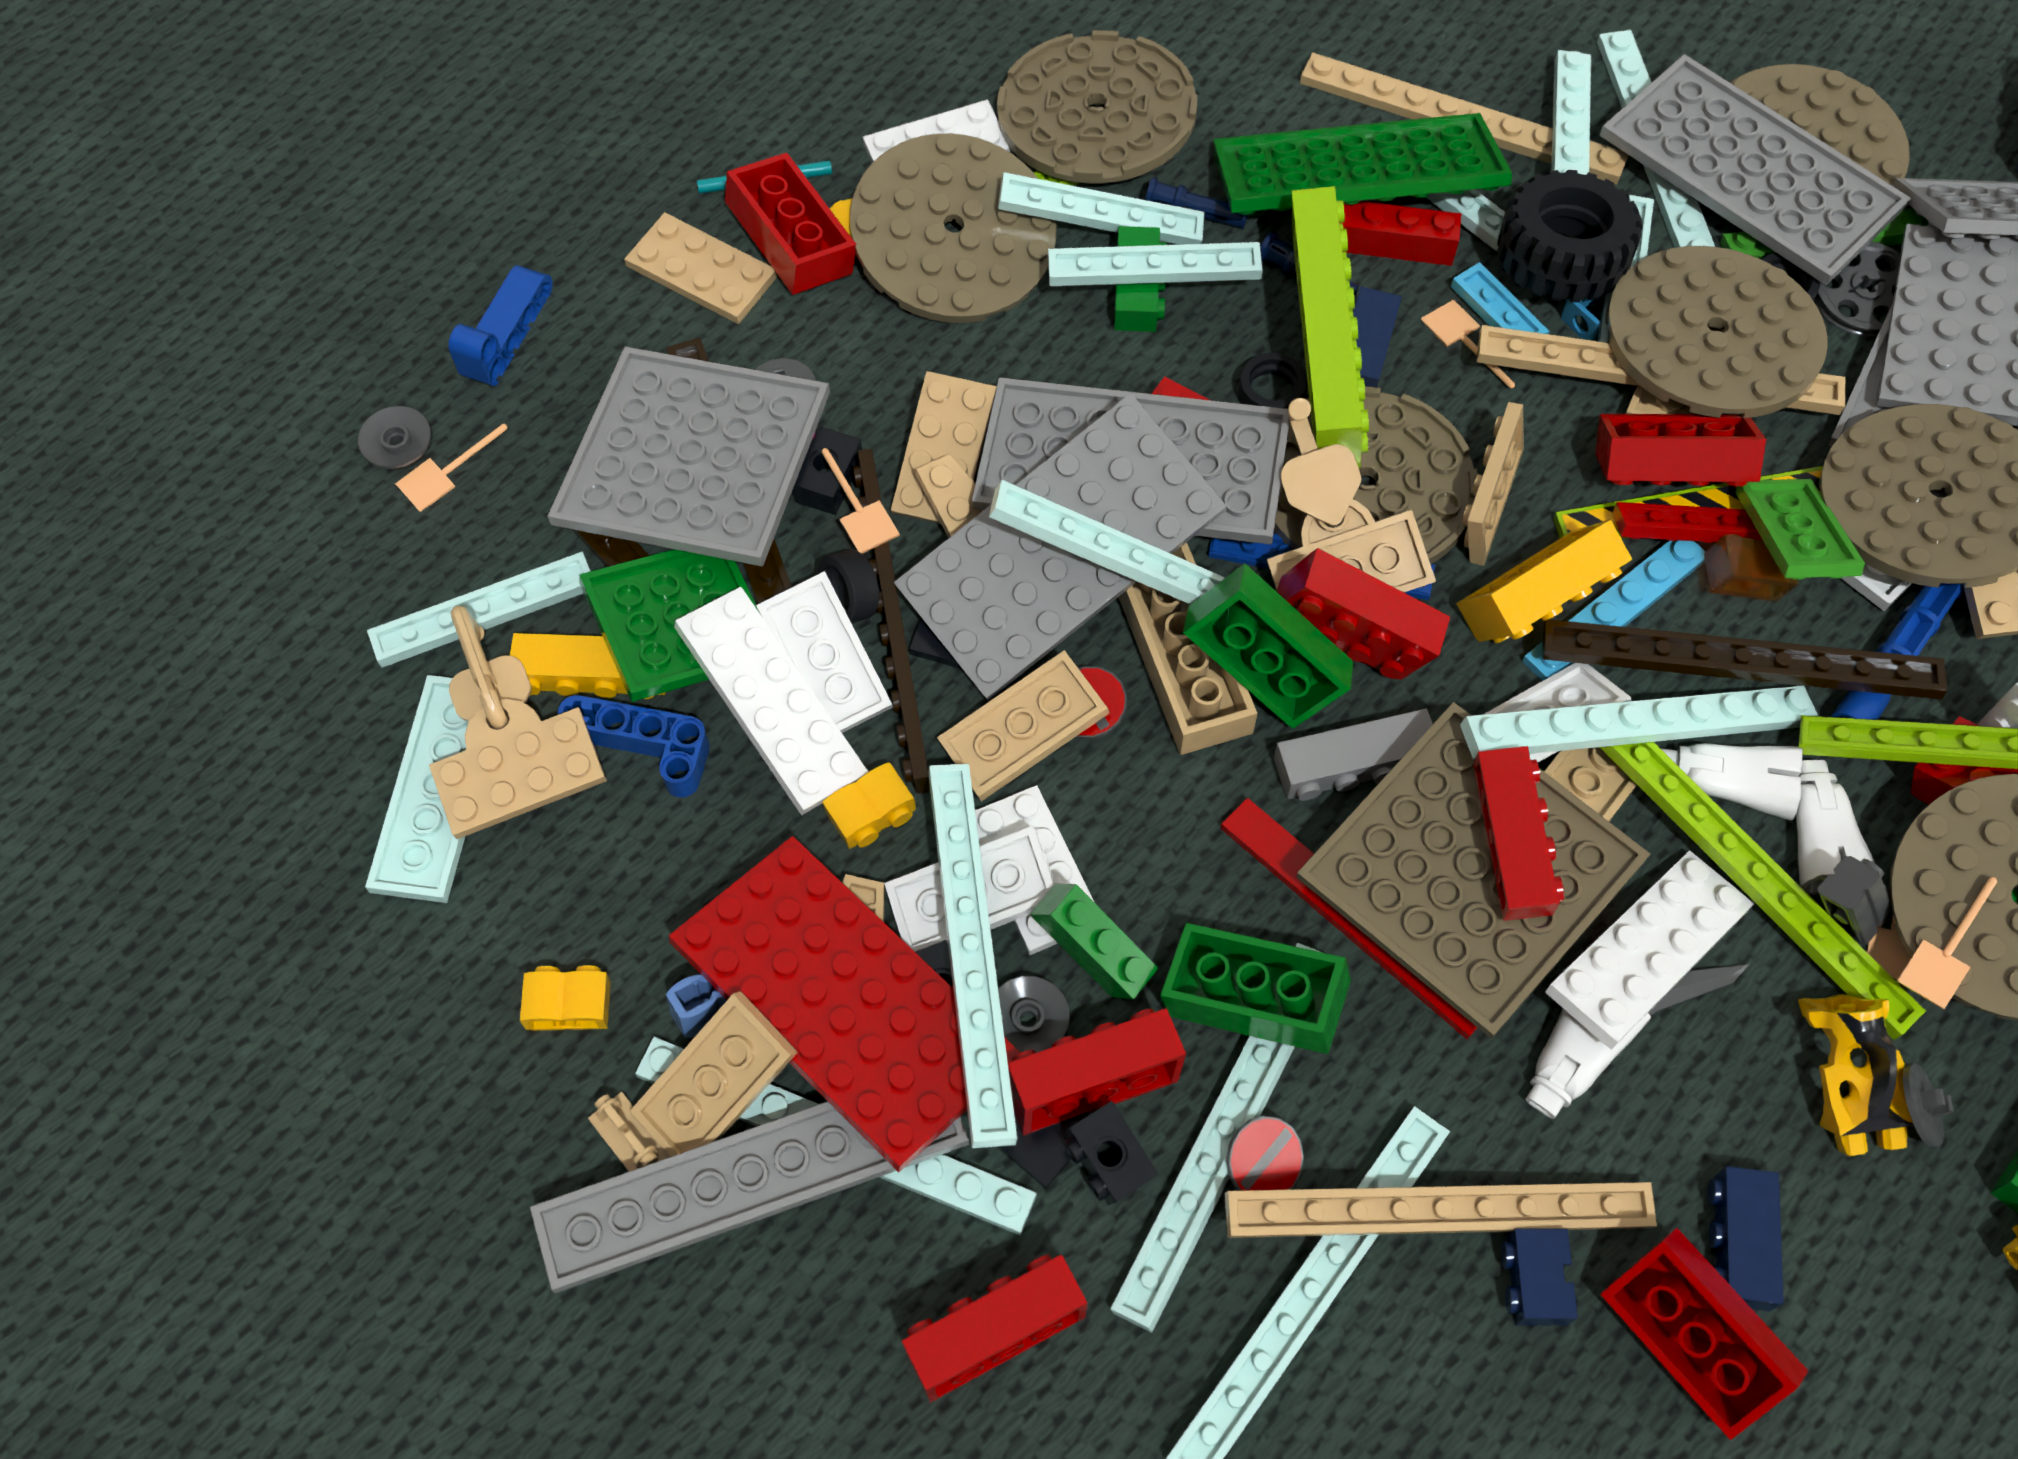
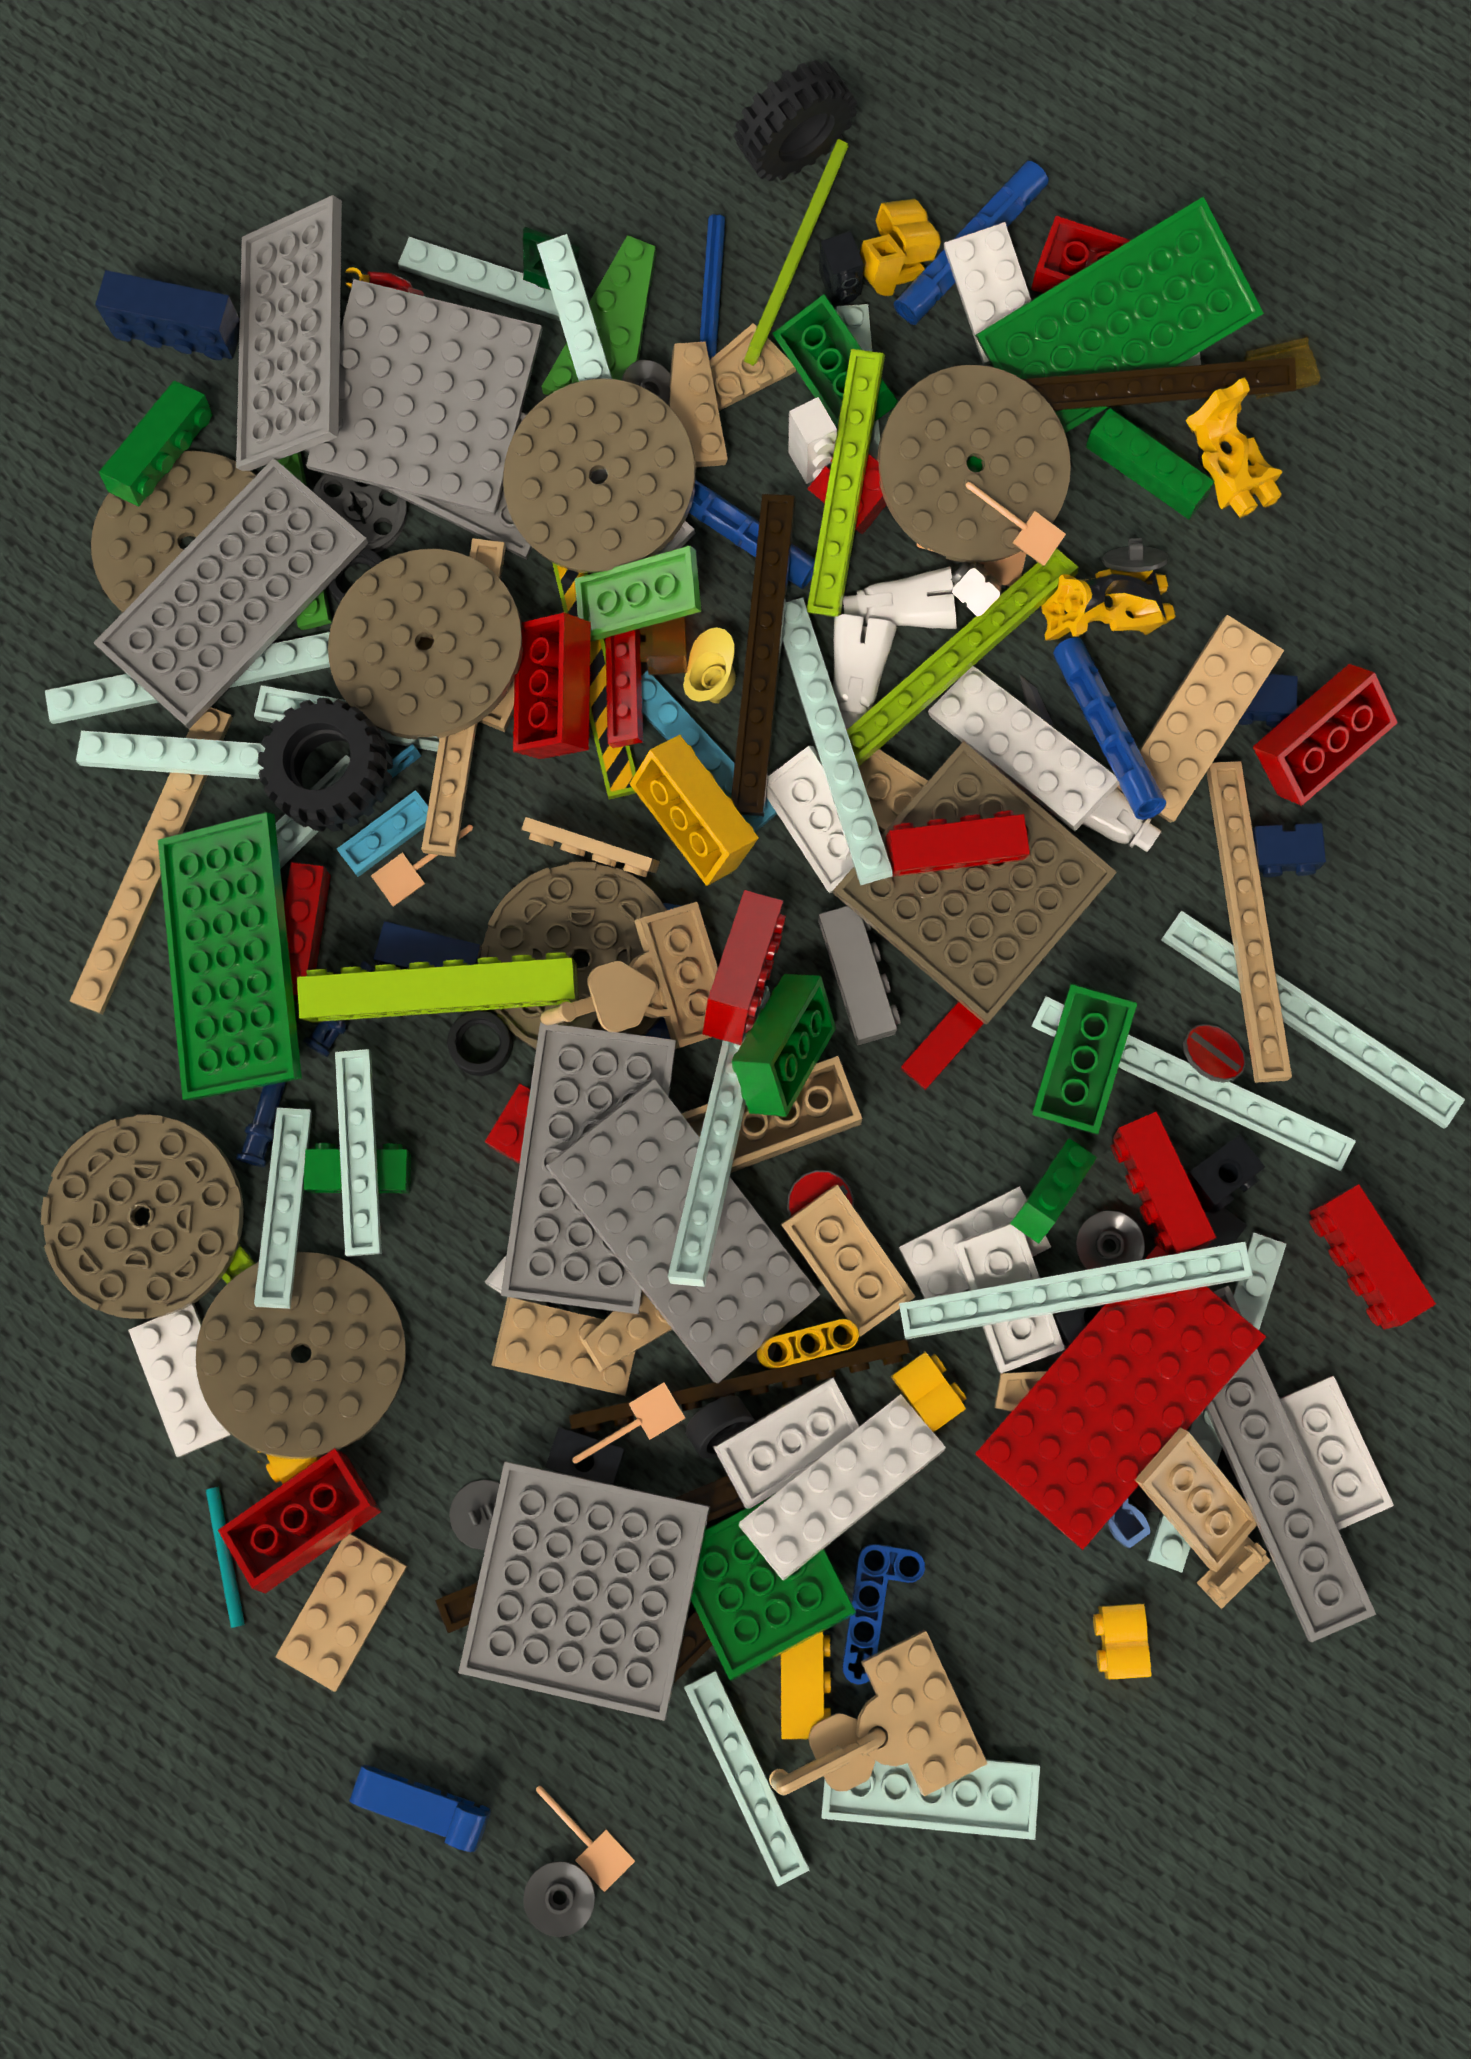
camera: 90 degrees left, 15 degrees up
(754, 1267) = (1336, 1452): none -> white plate
(926, 662) = (823, 1339): none -> yellow beam
(1683, 1042) = (1109, 729): none -> blue piece
(1711, 1160) = (1206, 710): none -> tan brick
(1717, 612) = (710, 667): none -> light yellow piece
(1912, 106) = (156, 443): none -> green brick

